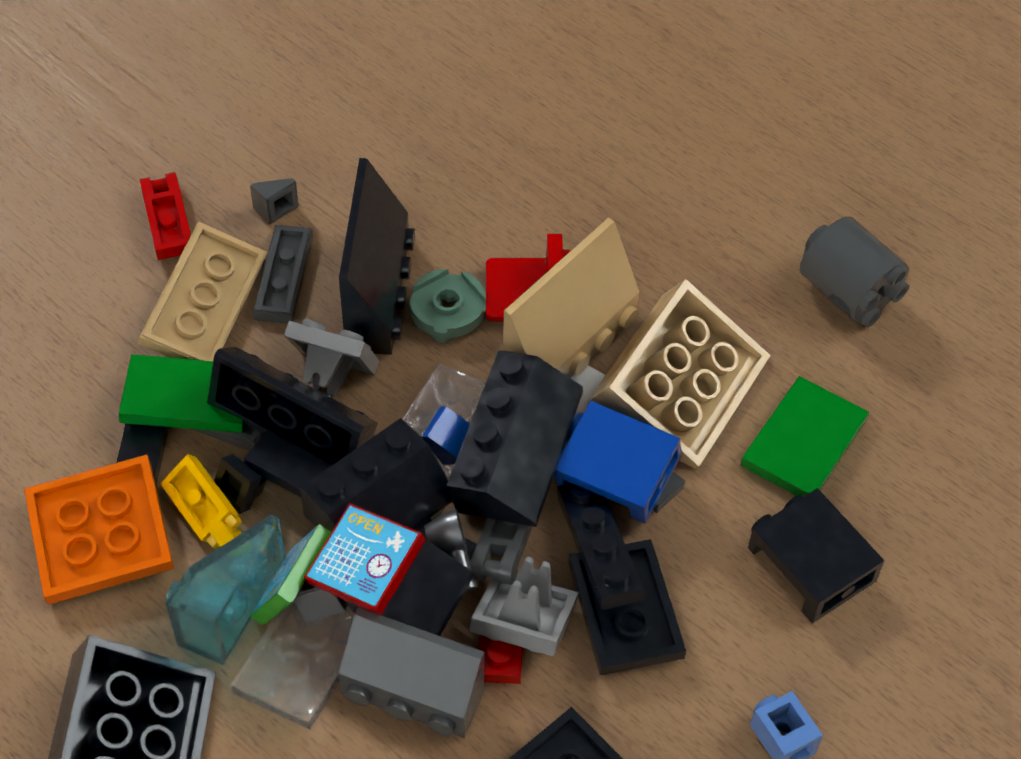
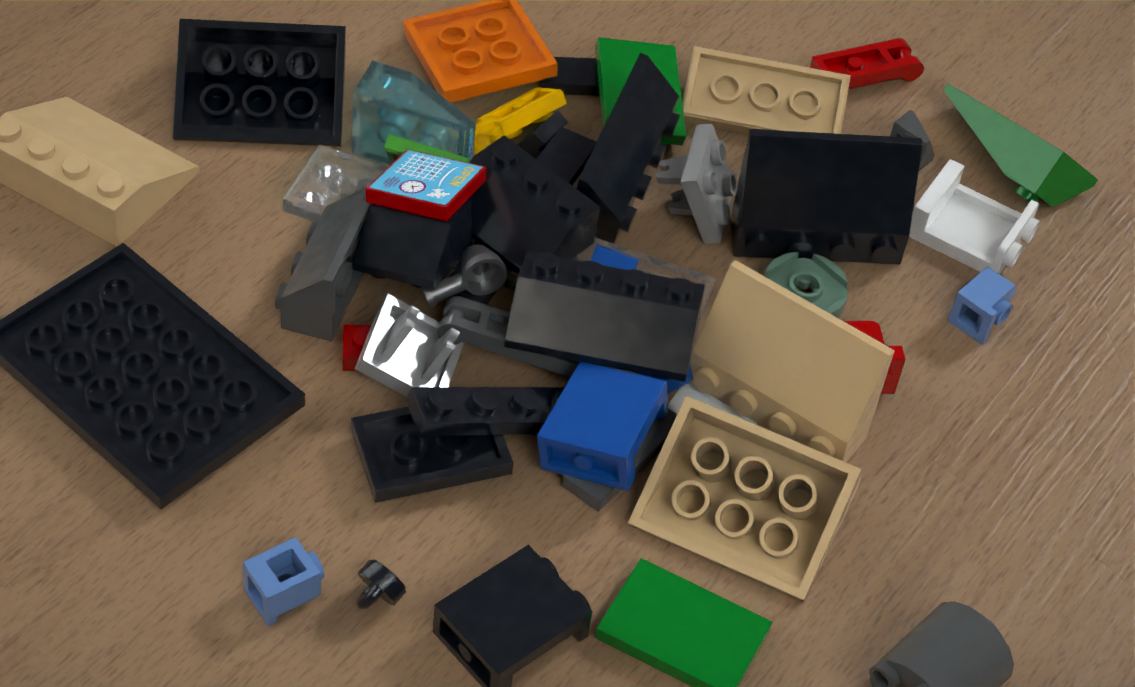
camera: 80 degrees right, 5 degrees down
(312, 119) = (1022, 156): none -> green wedge
(396, 159) = (970, 224): none -> white panel
(474, 184) = (982, 304): none -> medium blue brick
(783, 649) = (380, 583): none -> black tile

